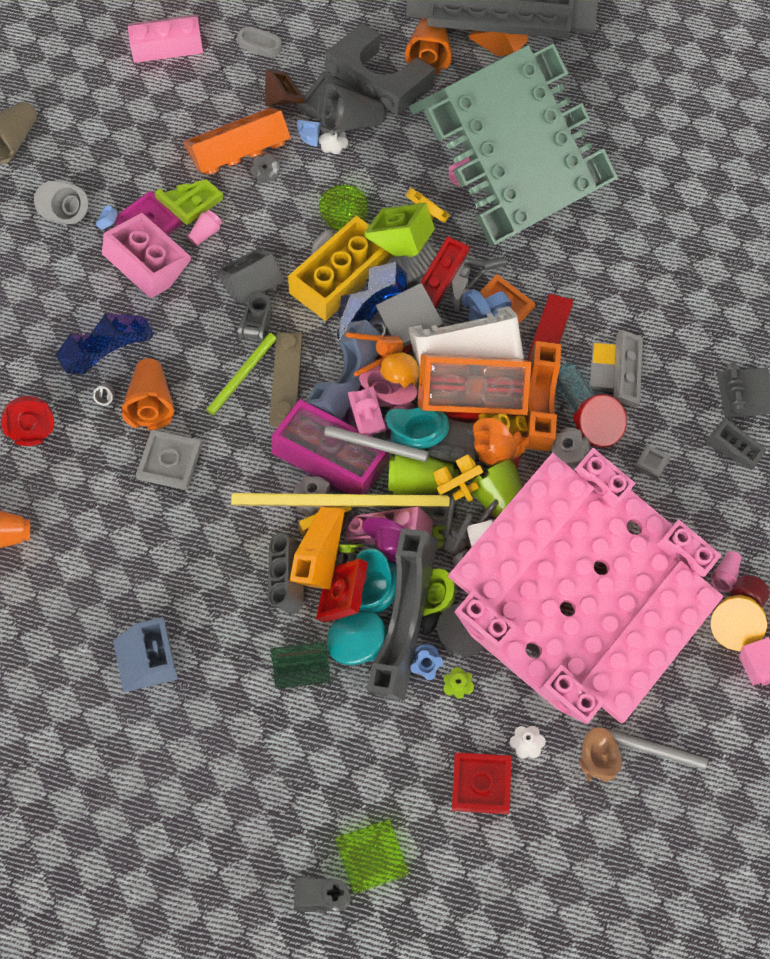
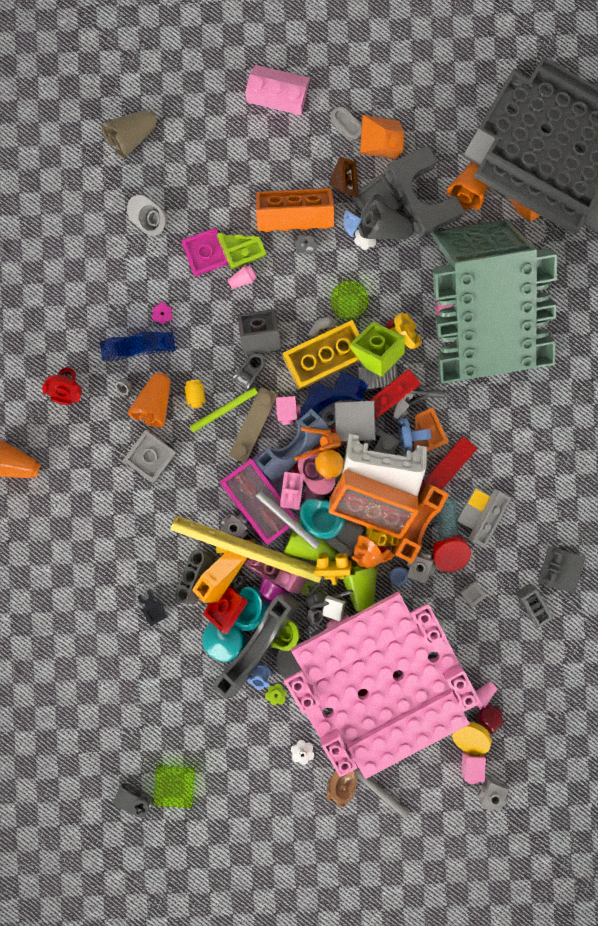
camera: 20 degrees right, 25 degrees up
(106, 217) = (177, 238): light blue tile -> none
(121, 301) = (162, 308): none -> dark pink plant
(145, 254) = (191, 285): bright pink slope -> none
(145, 655) = (82, 597): sand blue slope -> none
(197, 368) = (194, 393): none -> yellow brick
(248, 638) = (154, 611): none -> black plate
(300, 665) = (179, 643): clear green panel -> none
(305, 38) = (381, 137): none -> orange slope
(320, 343) = (287, 410): none -> bright pink brick
(348, 547) = (245, 572): lime plant -> none
(481, 783) = (261, 770): red plate -> none

